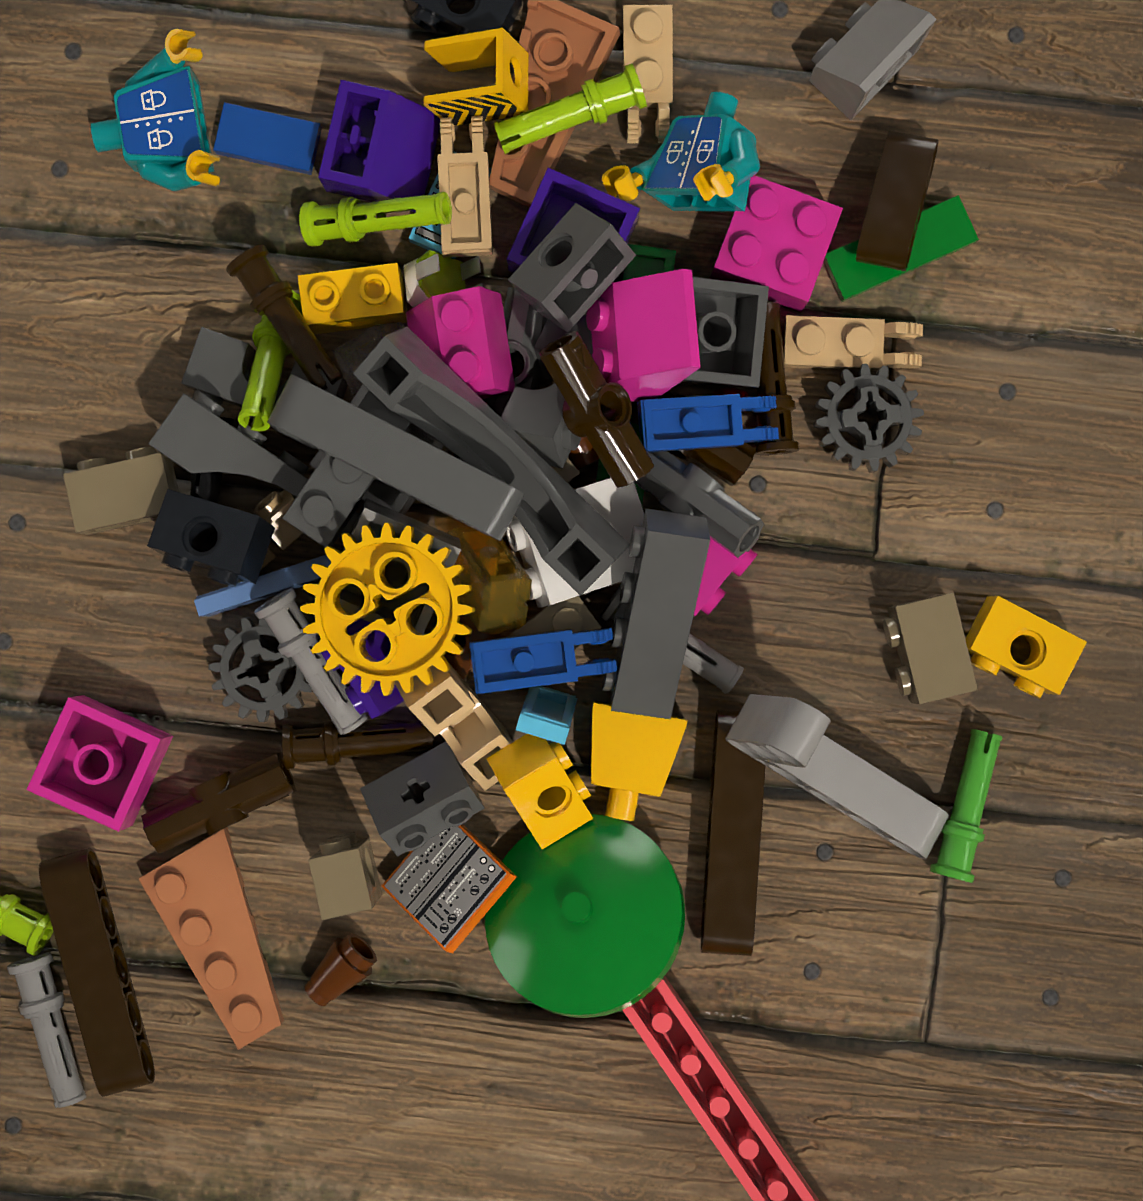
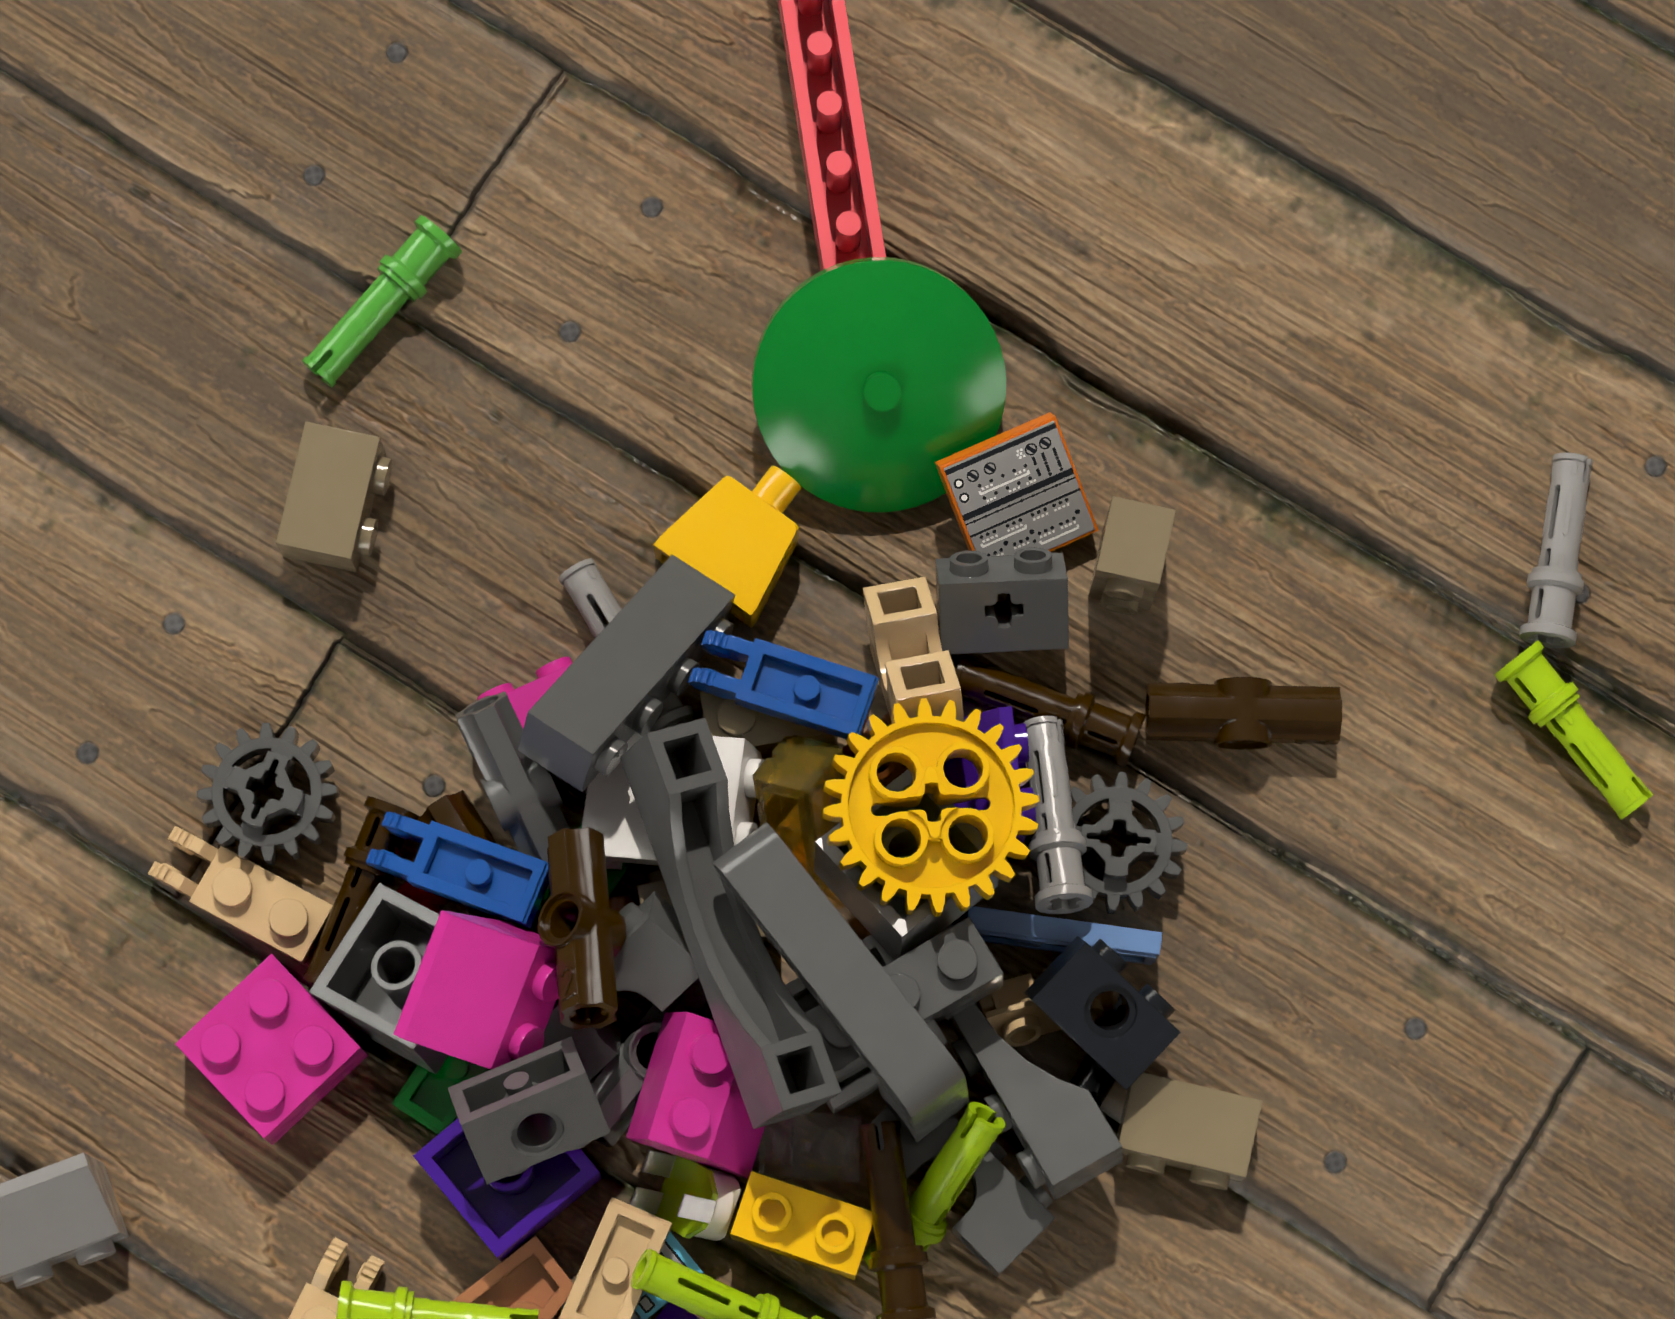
camera: 160 degrees left, 10 degrees down
(96, 972) = (1474, 589): dark brown beam -> none
(99, 762) = (1357, 820): dark pink brick -> none
(212, 925) = (1316, 585): nougat wing -> none
(343, 967) = (1188, 459): reddish brown cone -> none
(540, 788) = (856, 548): yellow brick -> none
(547, 714) = (811, 621): medium azure tile -> none
(699, 165) = (318, 1183): torso -> none
(732, 846) = (662, 399): dark brown beam -> none
(792, 742) = (531, 427): light grey beam -> none
(897, 200) = (103, 1028): dark brown beam -> none
(939, 233) = (125, 977): green tile -> none
(1051, 654) = (201, 421): yellow brick -> none

